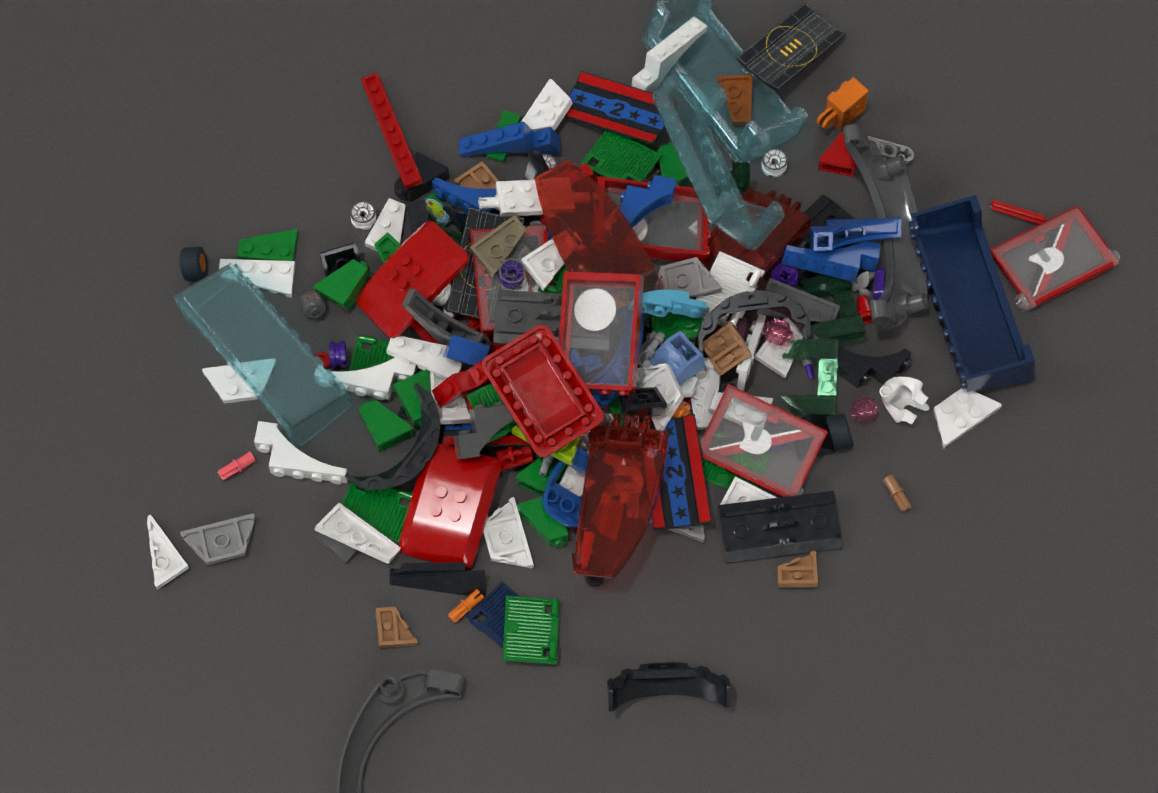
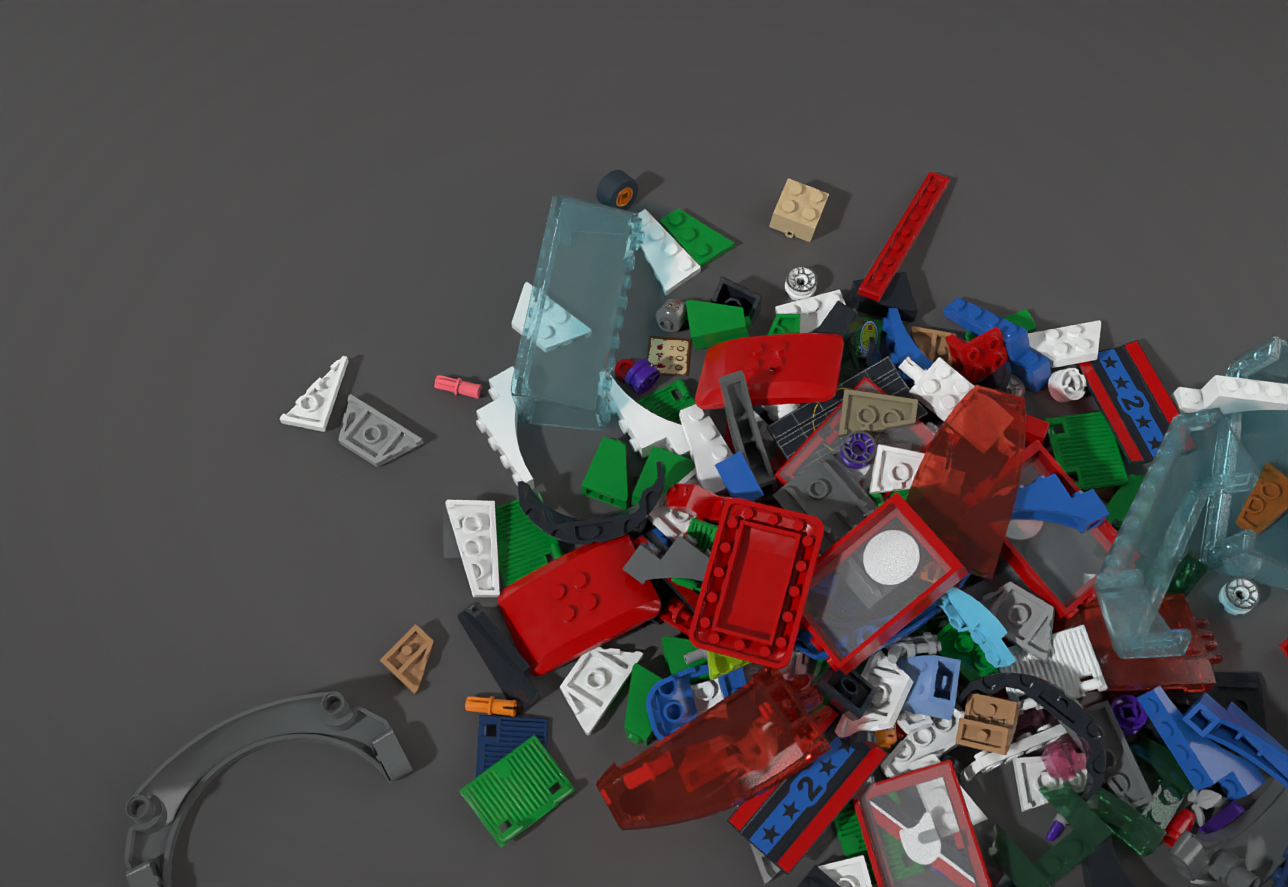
camera: 50 degrees right, 0 degrees up
(314, 173) = (798, 210): none -> tan brick
(334, 328) = (669, 355): none -> tan sticker
(512, 162) = (979, 356): none -> red bracket
(572, 132) = (1067, 385): none -> white wheel
(676, 420) = (863, 740): none -> black tile

